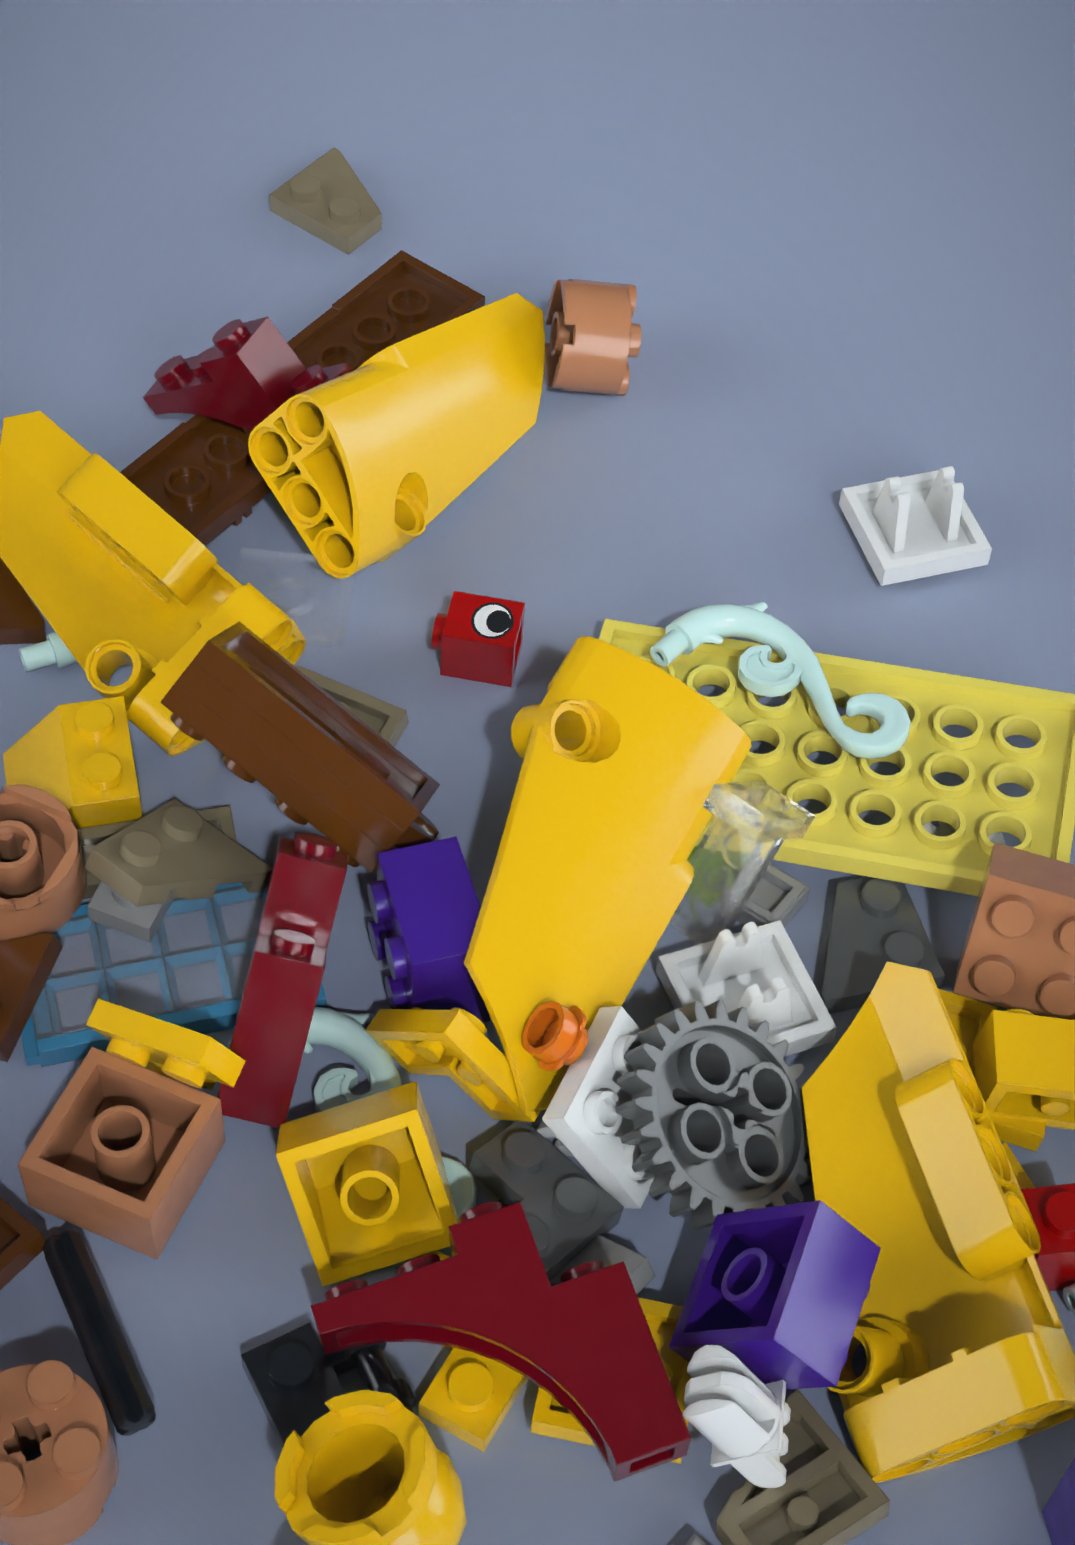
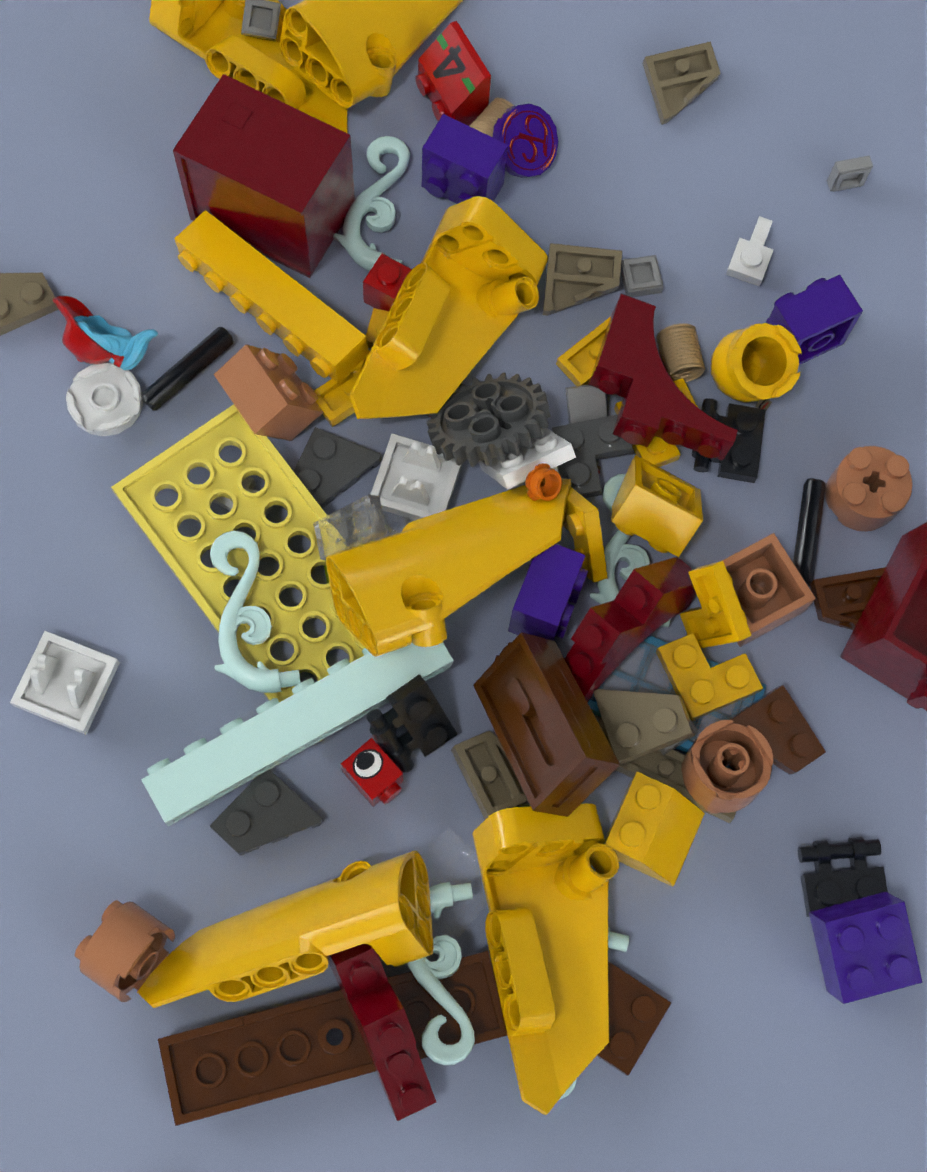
camera: 145 degrees left, 20 degrees up
(127, 973) = (705, 687): none -> yellow plate
(228, 497) = (429, 972): none -> light aqua plant
(477, 691) = (422, 717): none -> black plate
(519, 1473) = (681, 352): none -> tan piece
(566, 547) = (264, 814): none -> dark grey wing
(629, 569) = (285, 728): none -> light aqua brick
(738, 1415) = (590, 296): white arm -> none
(780, 1292) = (539, 323): dark purple brick -> none

